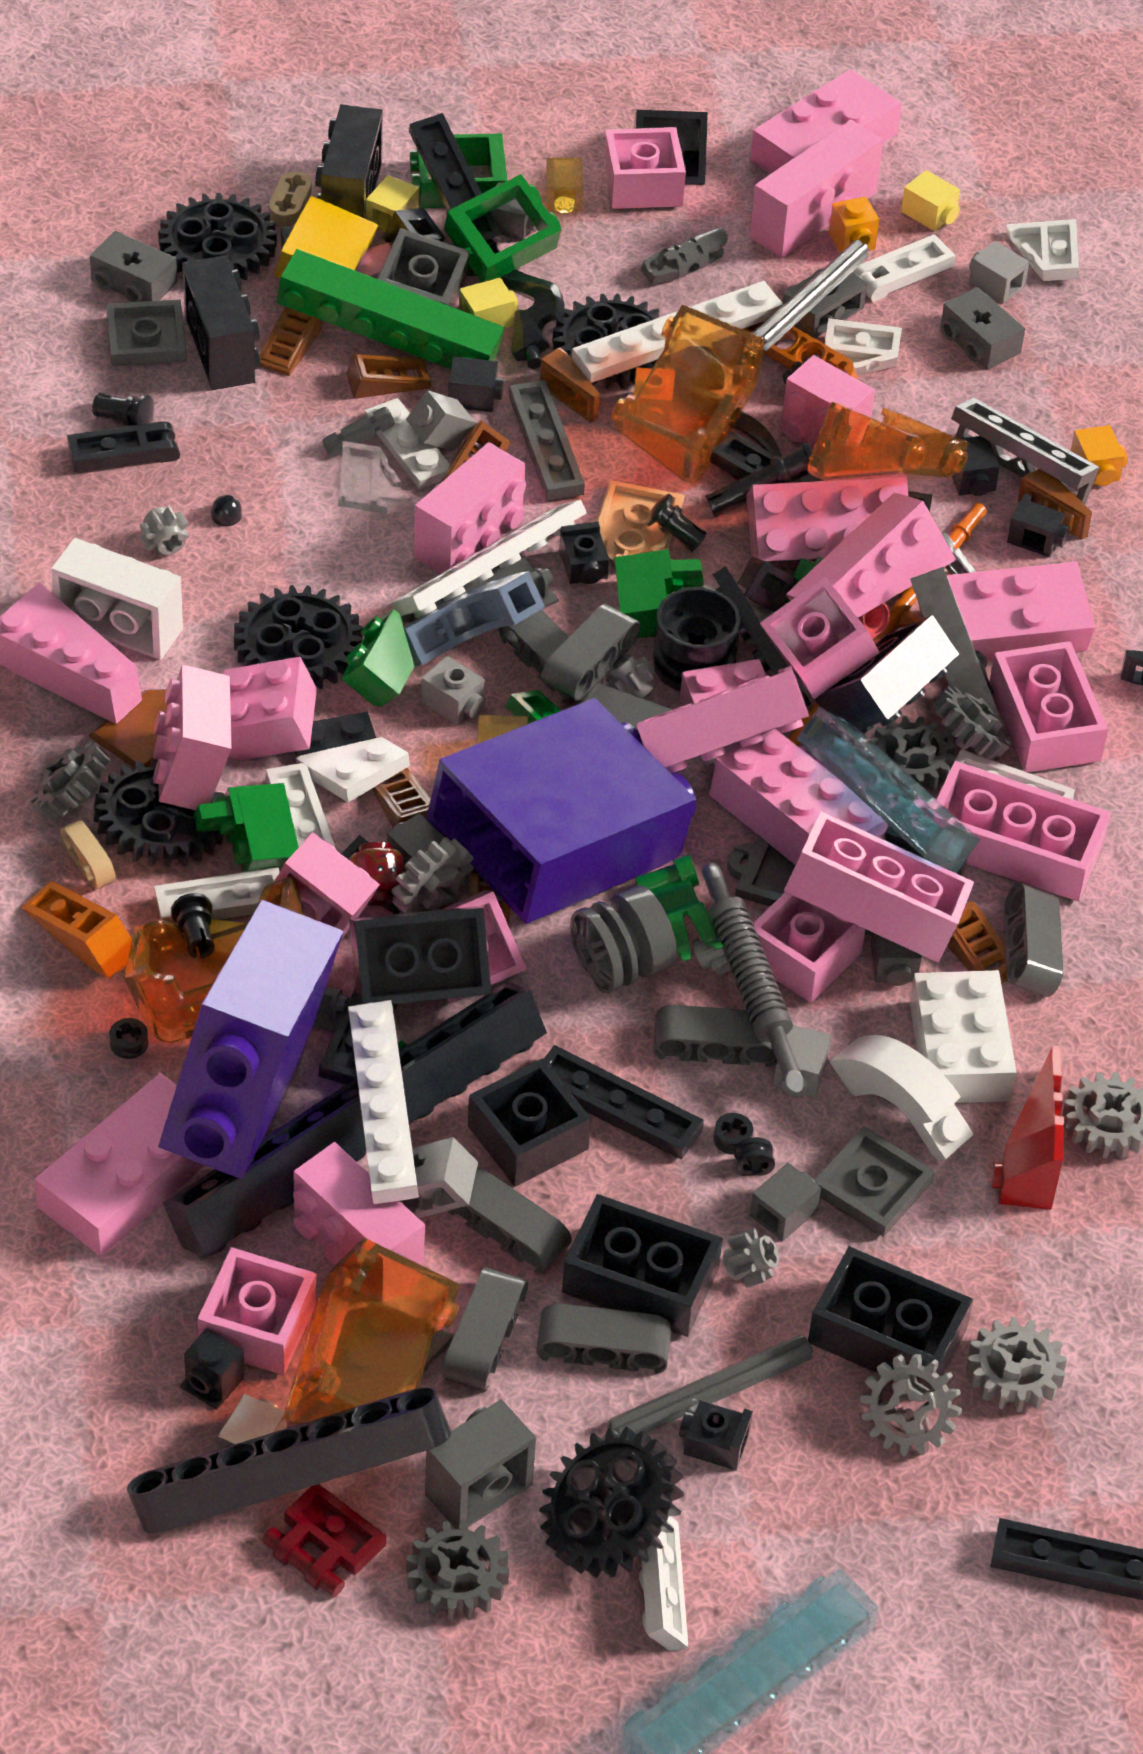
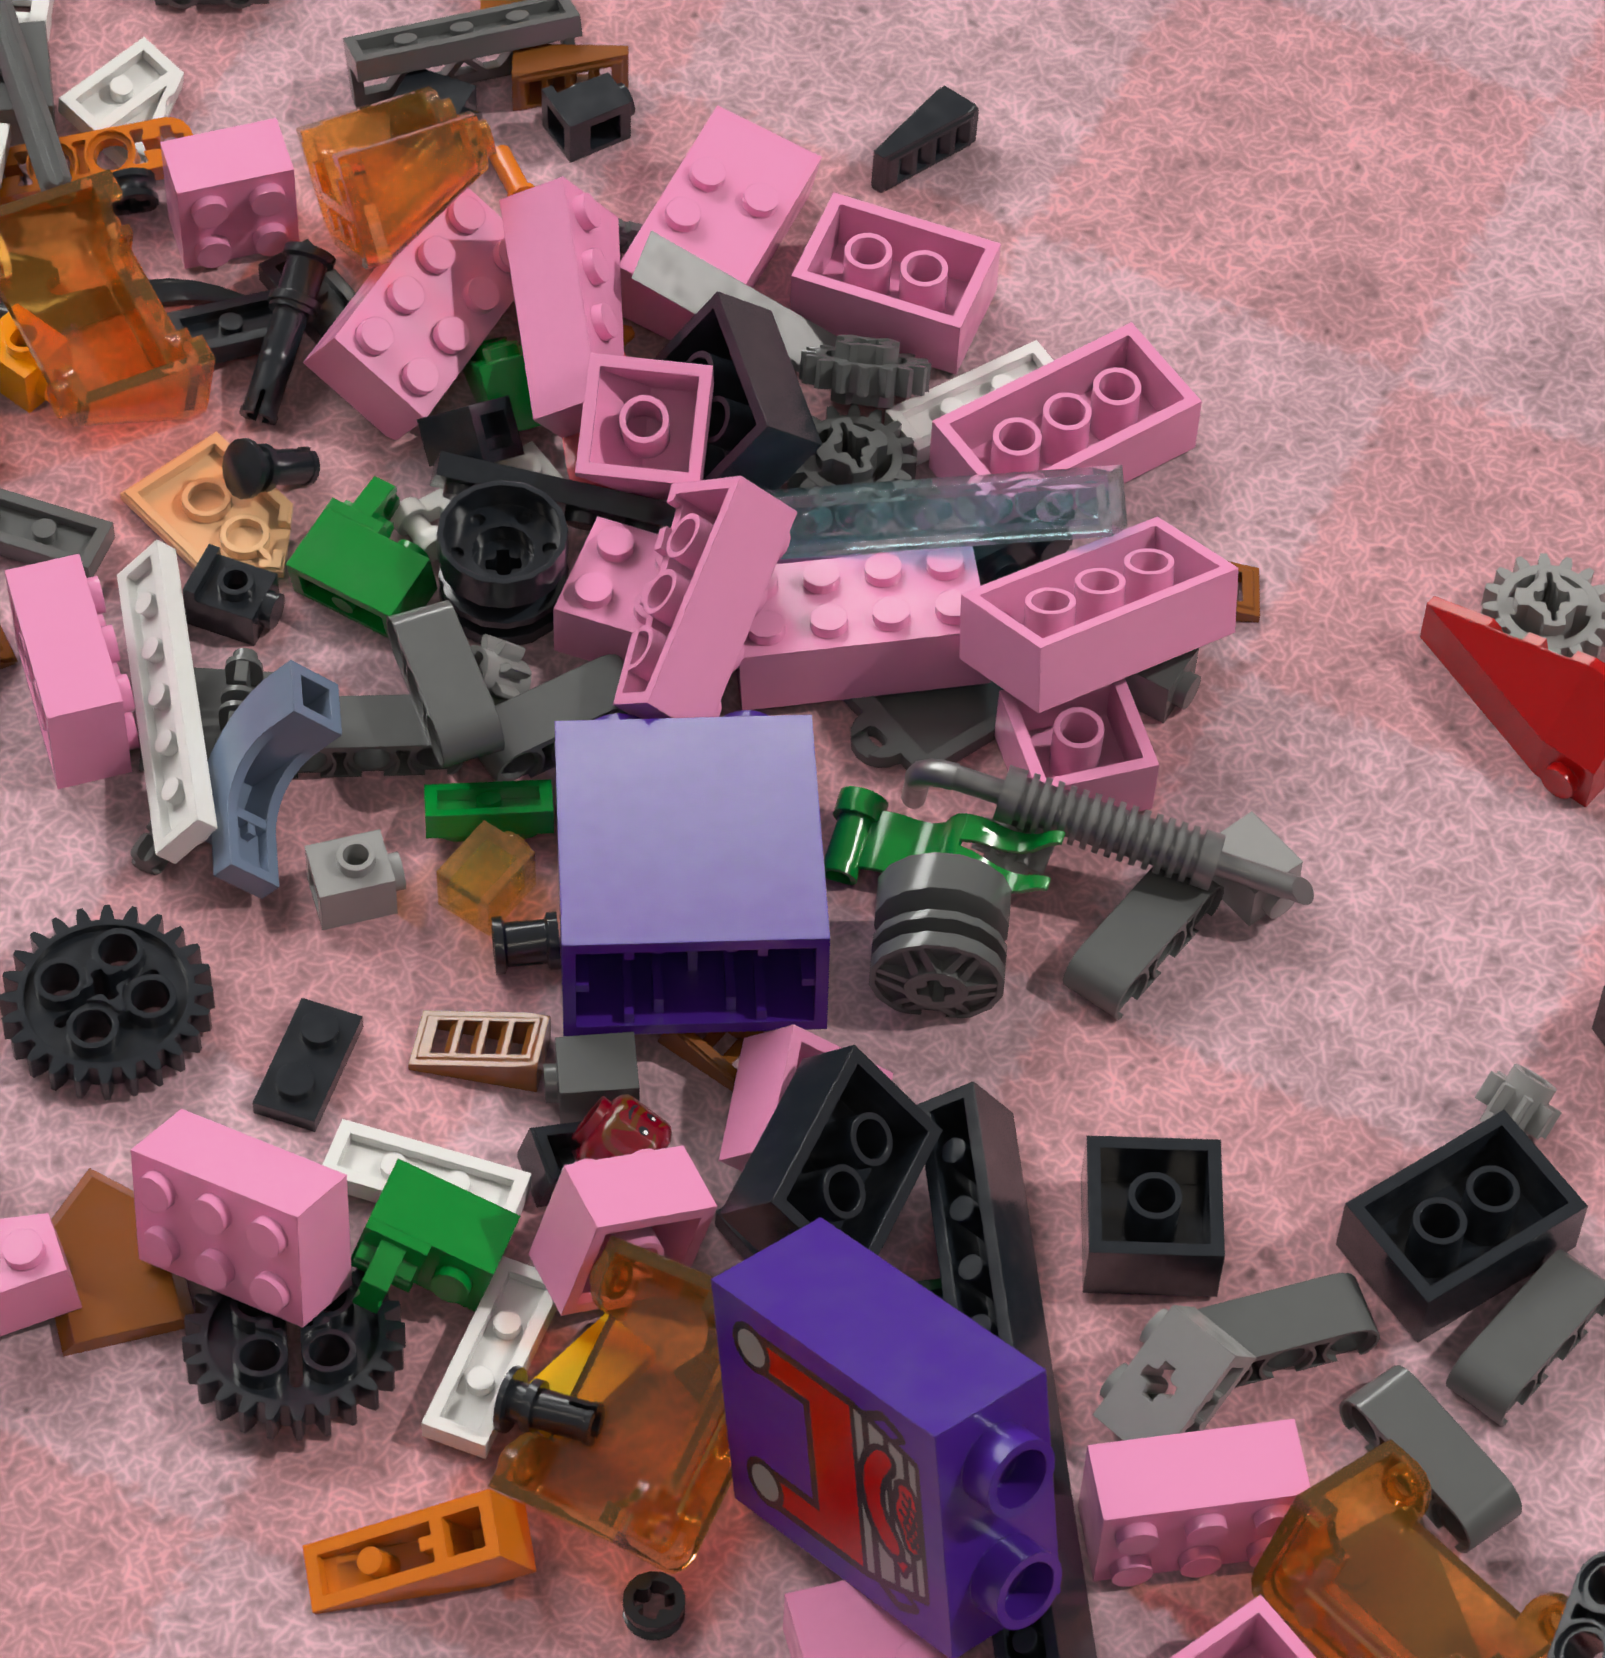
camera: 55 degrees left, 5 degrees up
(70, 780) = (163, 1417): dark grey gear -> none
(87, 854) = (295, 1473): tan beam -> none
(271, 708) = (228, 1082): bright pink brick -> none
(355, 767) = (388, 1068): white wing -> none
(381, 661) = (241, 925): slope -> none
(383, 1103) = (1100, 1364): white plate -> none
(433, 877) = (684, 1083): light grey gear -> none
(626, 1104) = (1174, 1098): black plate -> none
(725, 1125) = (1304, 992): black bush -> none
(754, 1157) = (1360, 1009): black bush -> none
(785, 1201) = (1454, 1017): dark grey brick -> none
(874, 1181) = (1479, 910): dark grey plate -> none
(911, 1083) = (1372, 779): white arch -> none
(965, 1032) = (1334, 684): white brick -> none
(1033, 940) = (1263, 521): dark grey beam -> none

